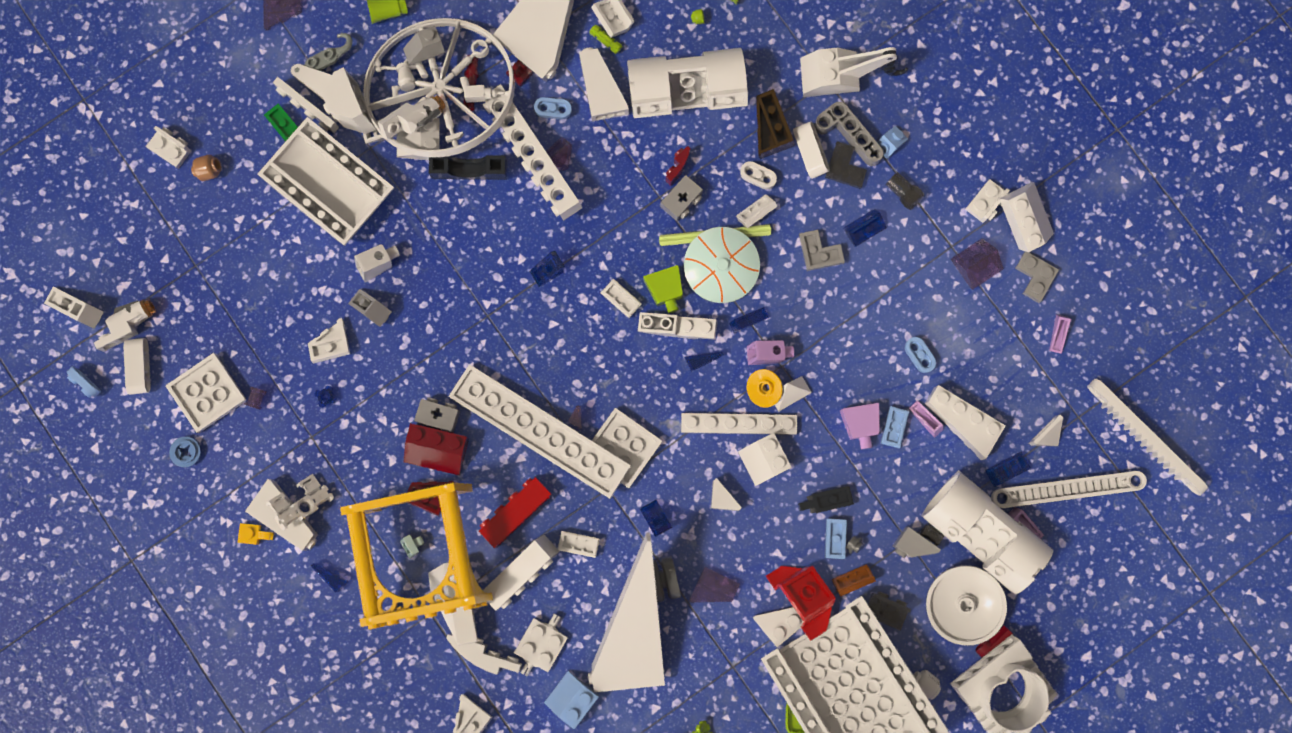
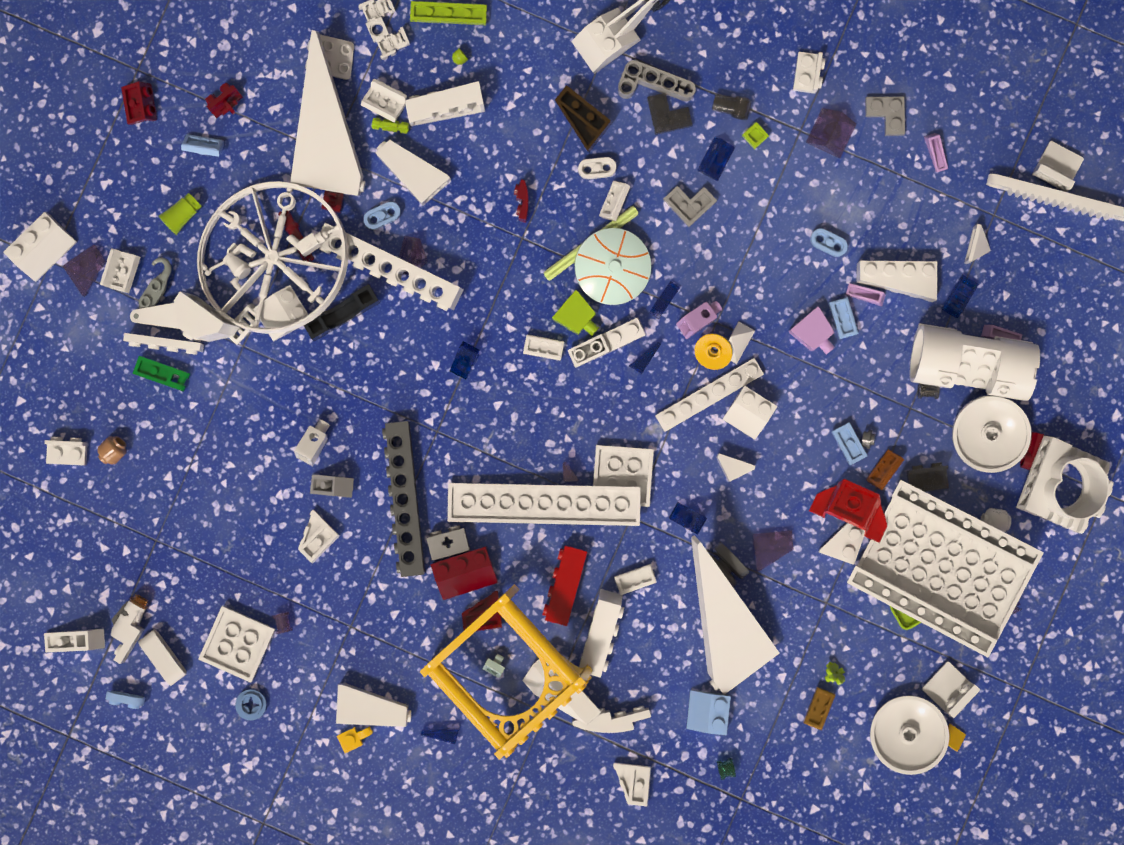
camera: 30 degrees left, 5 degrees up
(291, 513) = (377, 701): white piece -> none
(307, 25) = (120, 270): none -> white bracket
(325, 181) = (226, 399): white slope -> none
(325, 401) = (346, 585): clear blue plate -> none
(411, 117) = (268, 300): white plate -> none
(423, 46) = (237, 229): light grey slope -> none
(425, 366) = (402, 430): none -> dark grey brick
(540, 645) = (654, 682): white plate -> none
(654, 43) = (445, 104): none -> white wedge
(684, 188) = (540, 218): light grey brick -> none
(707, 80) = (508, 110): white cylinder -> none
(811, 150) = (630, 118): white beam -> none
(827, 500) = (823, 415): black hinge -> none
(892, 141) = (695, 68): light blue bracket -> none
(910, 227) = (755, 135): none -> lime plate
(913, 544) = (917, 409): light grey slope -> none
(1027, 217) = (851, 67): white slope -> none
(1069, 489) = (1021, 283): white gear -> none
(1160, 408) = (1058, 166): none -> white bracket

